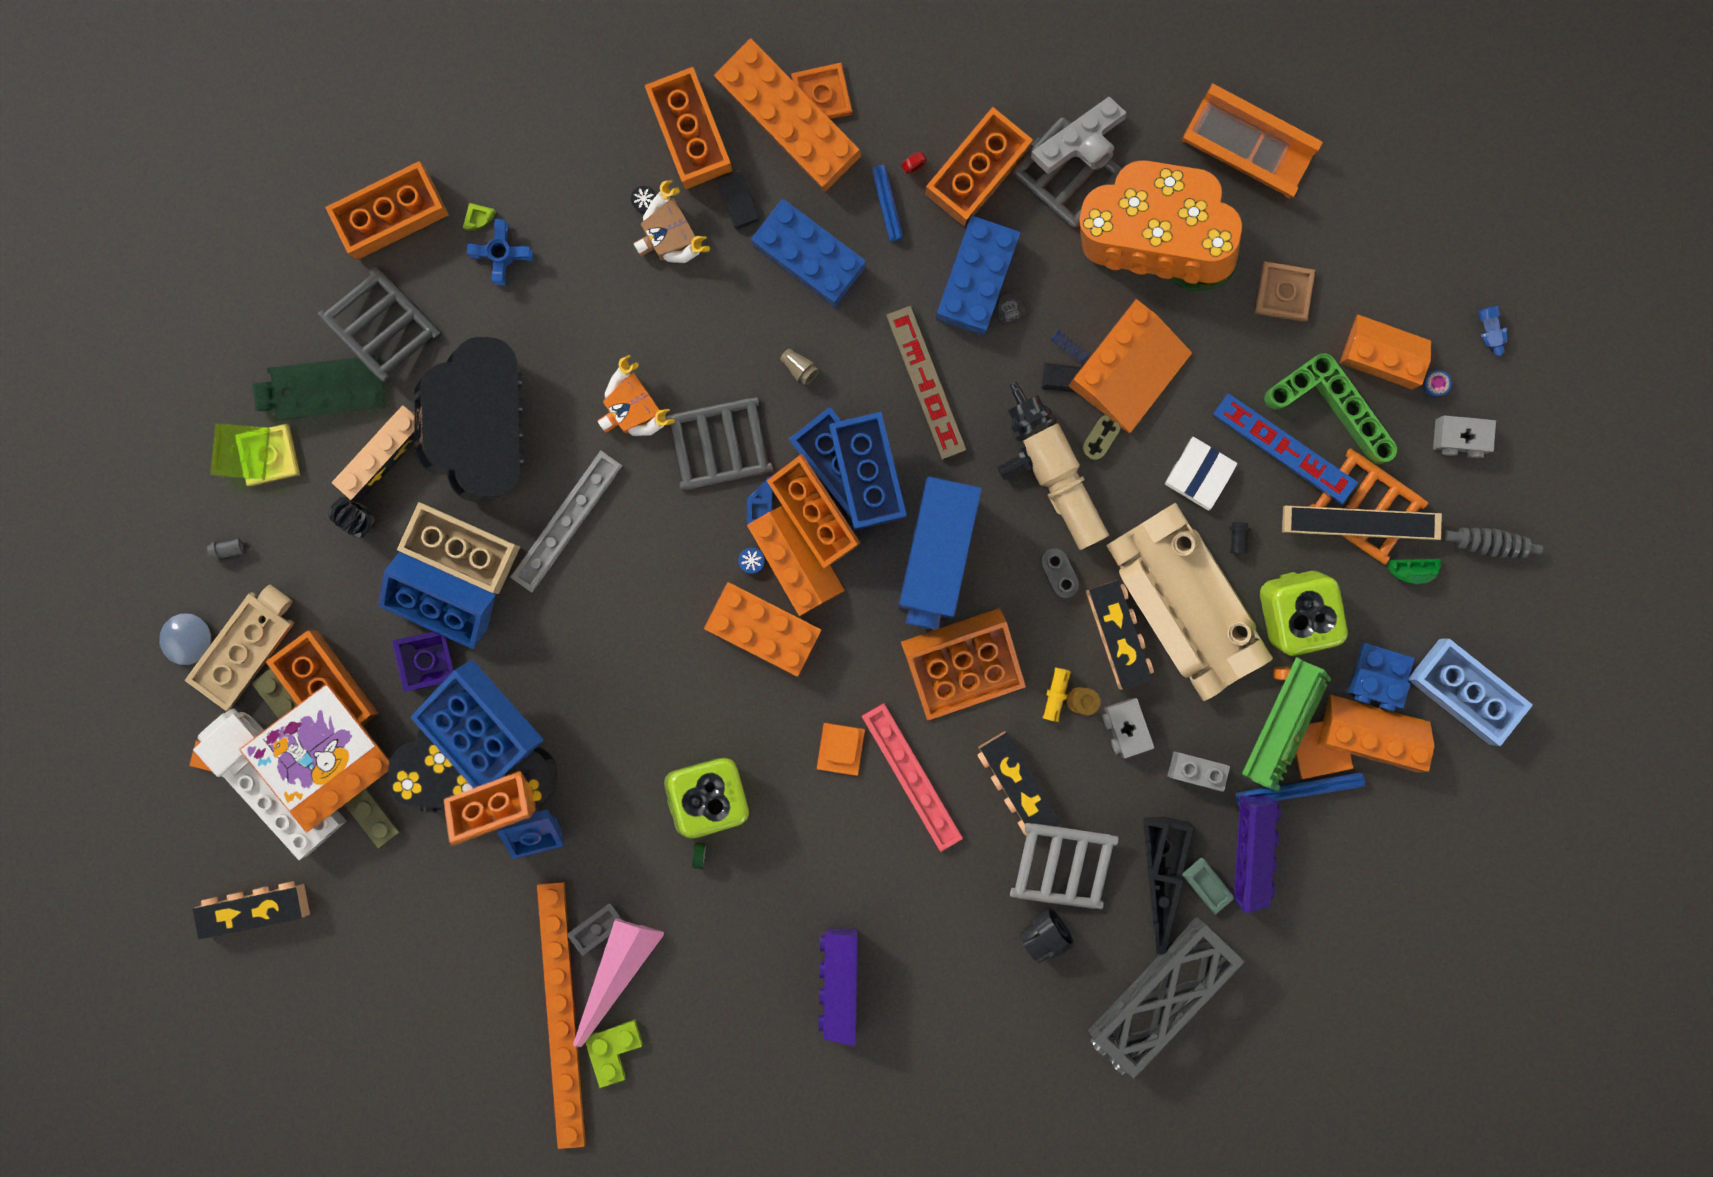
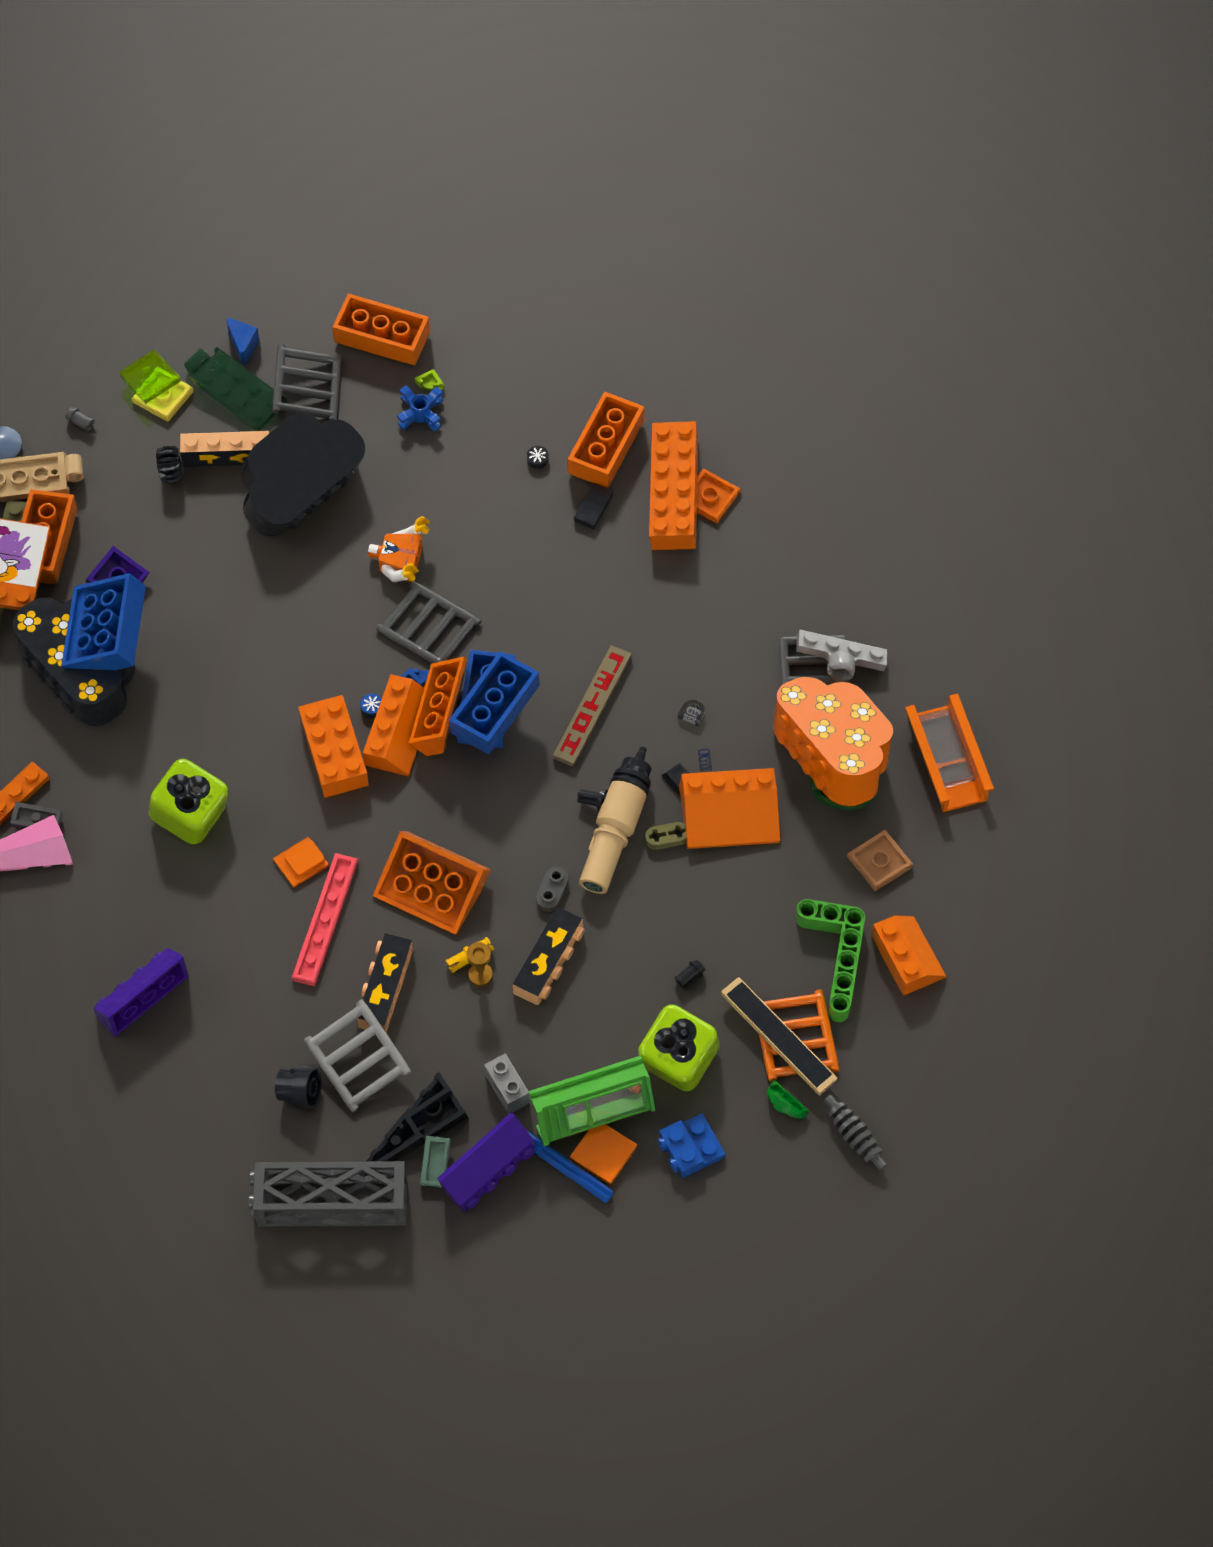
camera: 45 degrees right, 25 degrees down
(278, 334) = (243, 337): none -> blue slope
(436, 600) = (163, 548): blue brick -> none
(458, 548) = (209, 536): tan brick -> none
(488, 807) = (59, 668): orange slope -> none
(532, 835) = (63, 721): blue plate -> none
(566, 521) = (288, 584): light grey tile -> none
(668, 230) = (532, 481): torso -> none
(699, 855) = (145, 836): dark green tile -> none
(800, 367) = (525, 627): dark tan cone -> none
(808, 253) = (601, 569): blue brick -> none
(887, 203) = (682, 587): blue axle -> none
(914, 163) = (722, 578): red tile -> none
(938, 552) = (485, 787): blue brick -> none
(977, 275) = (691, 672): blue brick -> none
(978, 166) = (758, 612): orange brick -> none
(1138, 738) = (490, 1029): light grey brick -> none
(1188, 602) = (613, 978): tan panel -> none
(1201, 473) = (707, 913): white slope -> none
(1285, 449) = (777, 948): blue tile -> none
(1377, 734) = (646, 1174): orange slope -> none
(1437, 383) = (922, 1004): tile -> none
(1470, 692) = (737, 1204): light blue brick -> none
(1479, 433) = (903, 1037): light grey brick -> none
(1494, 335) = (992, 1010): blue piece -> none

